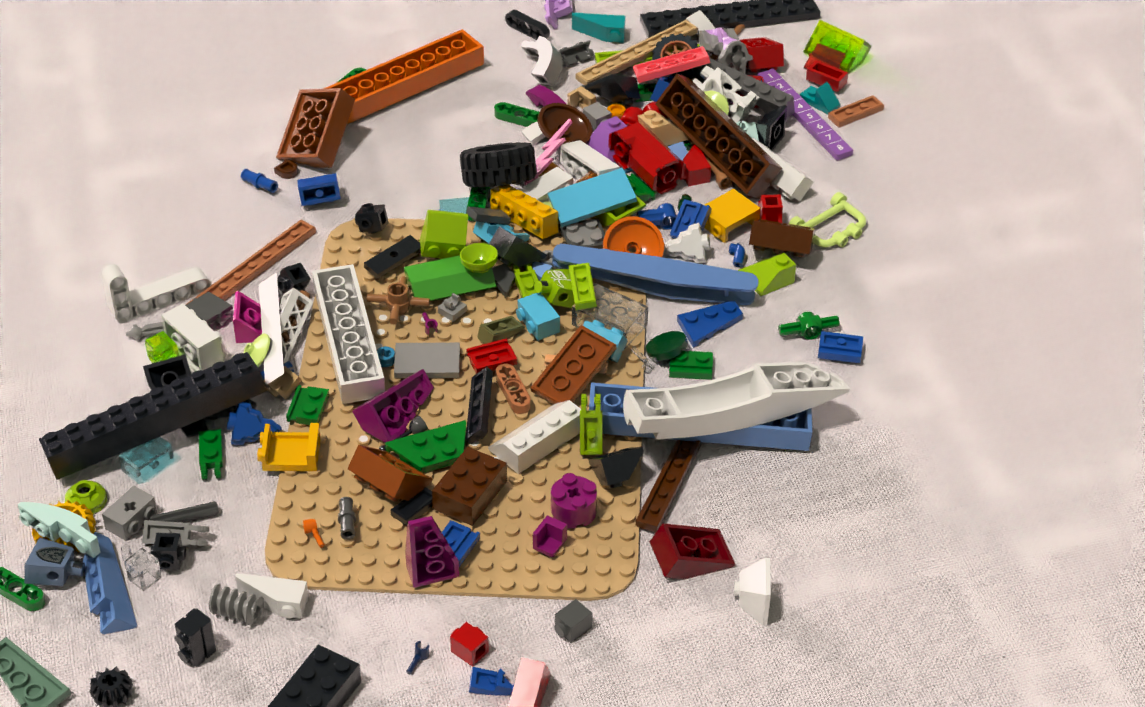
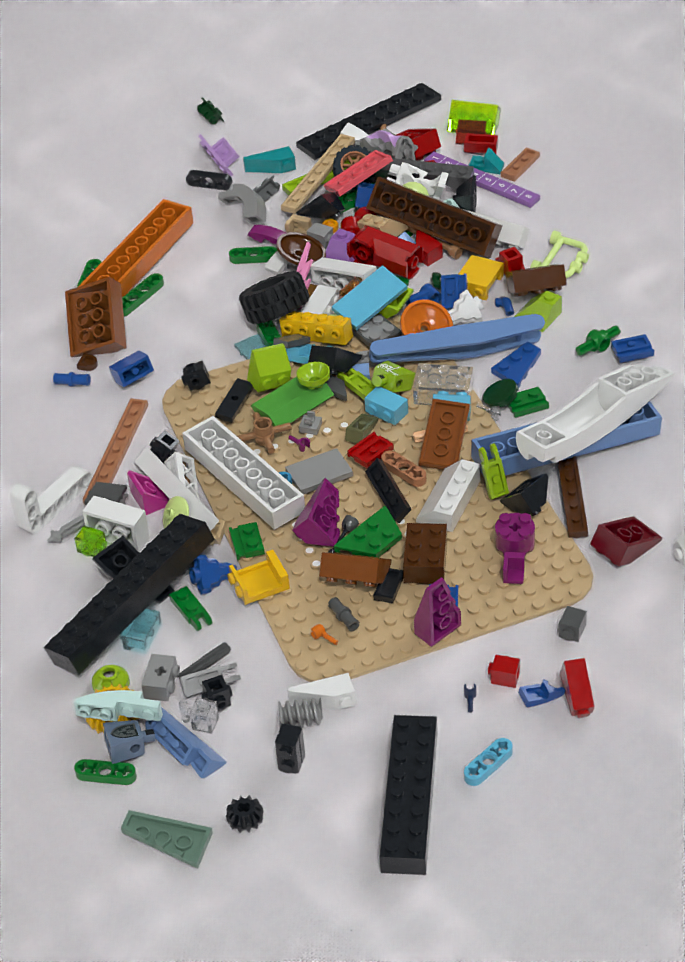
camera: 20 degrees left, 0 degrees up
(362, 124) = (152, 283): none -> green beam
(582, 286) = (413, 368): lime tile -> none

